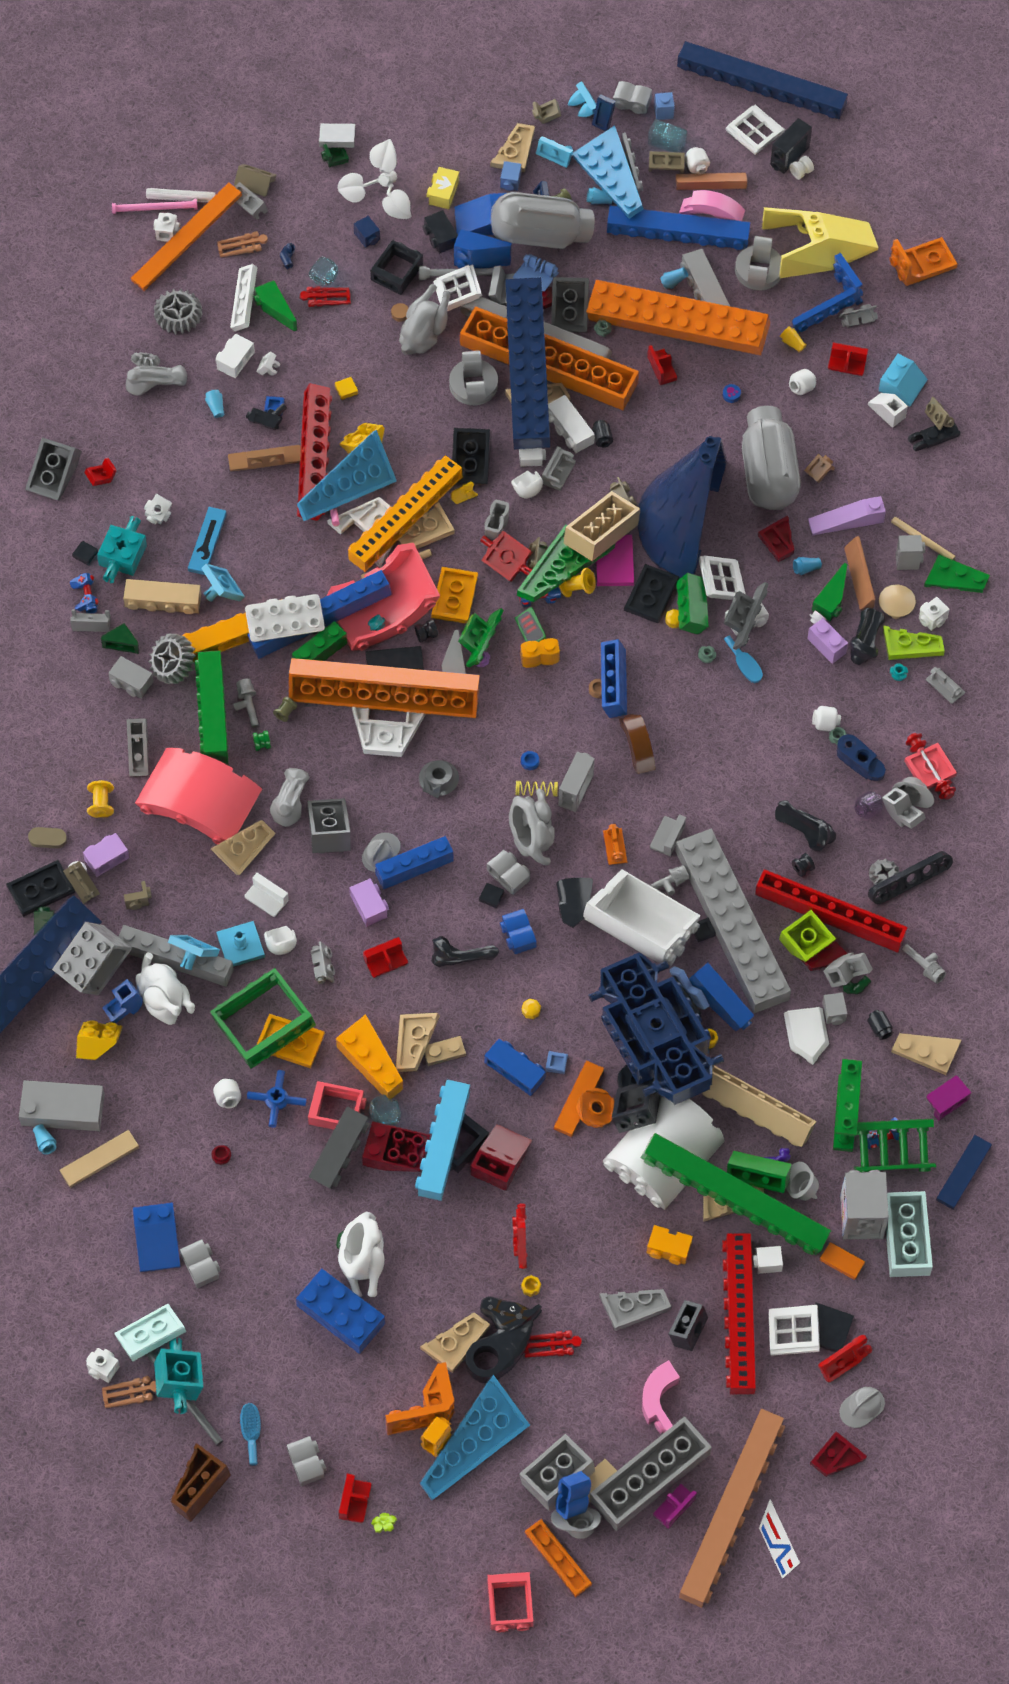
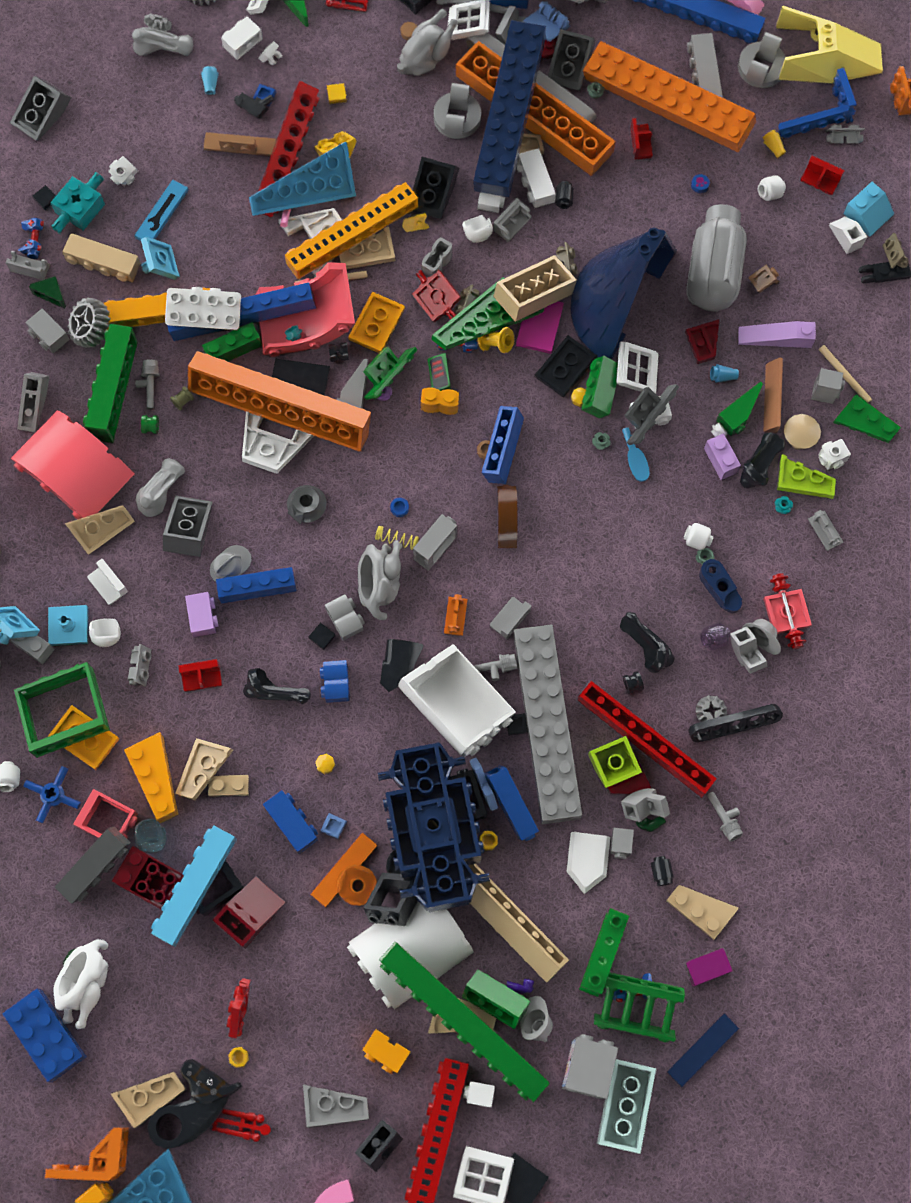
camera: 15 degrees right, 10 degrees up
(101, 474) = (82, 123): red bracket -> none
(673, 278) = (676, 56): dark azure cone -> none
(842, 1261) = (554, 1113): orange tile -> none

